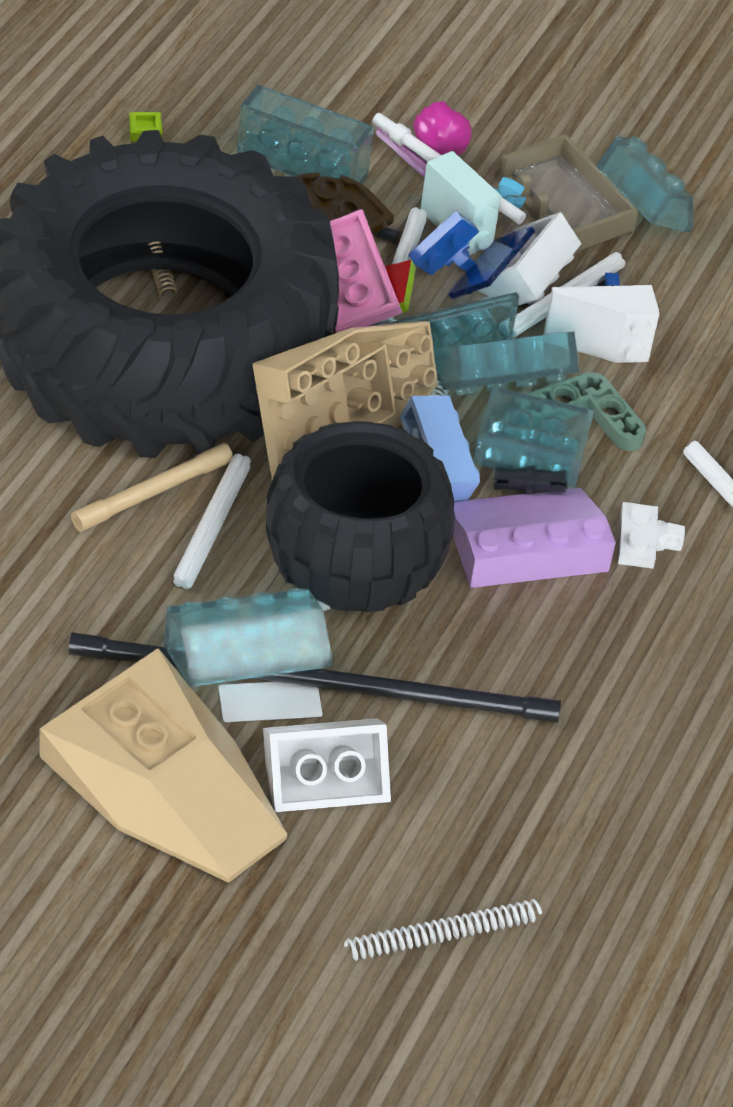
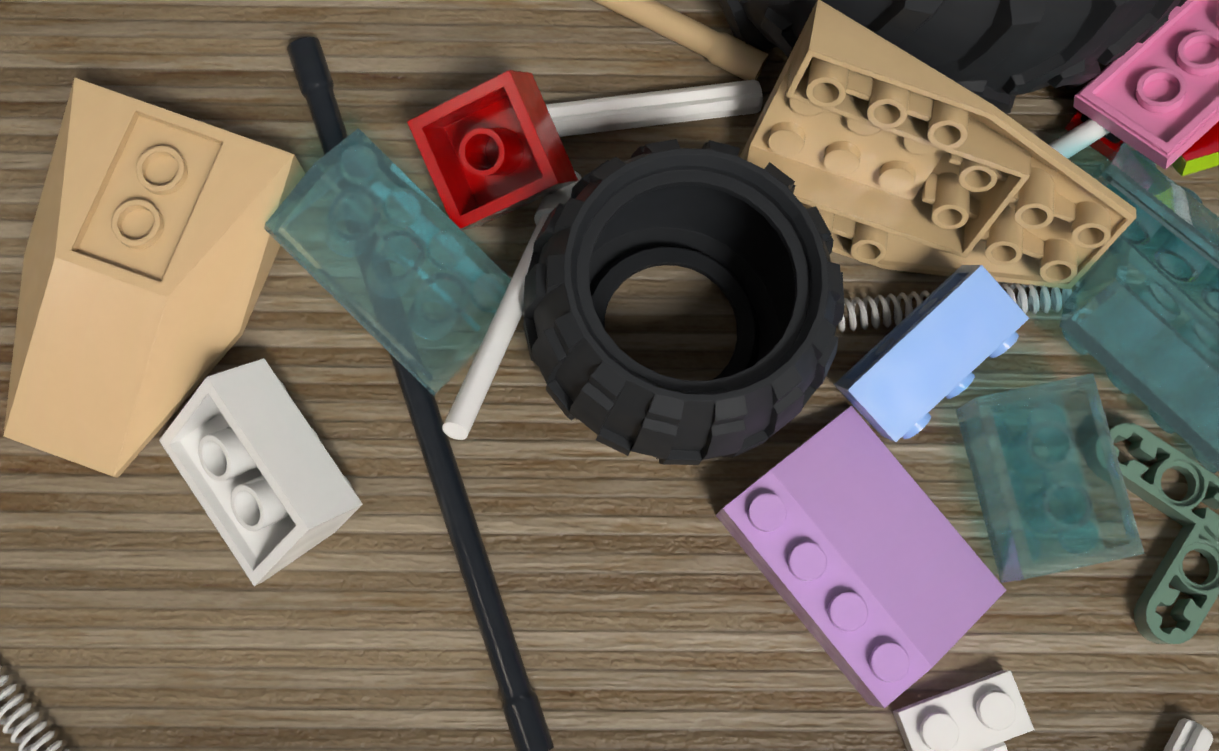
camera: 65 degrees right, 30 degrees up
(210, 563) = (492, 149): none -> red brick
(263, 569) = (499, 334): none -> white bar
(268, 701) = (349, 351): white sticker -> none
(530, 479) = (964, 512): black pin -> none

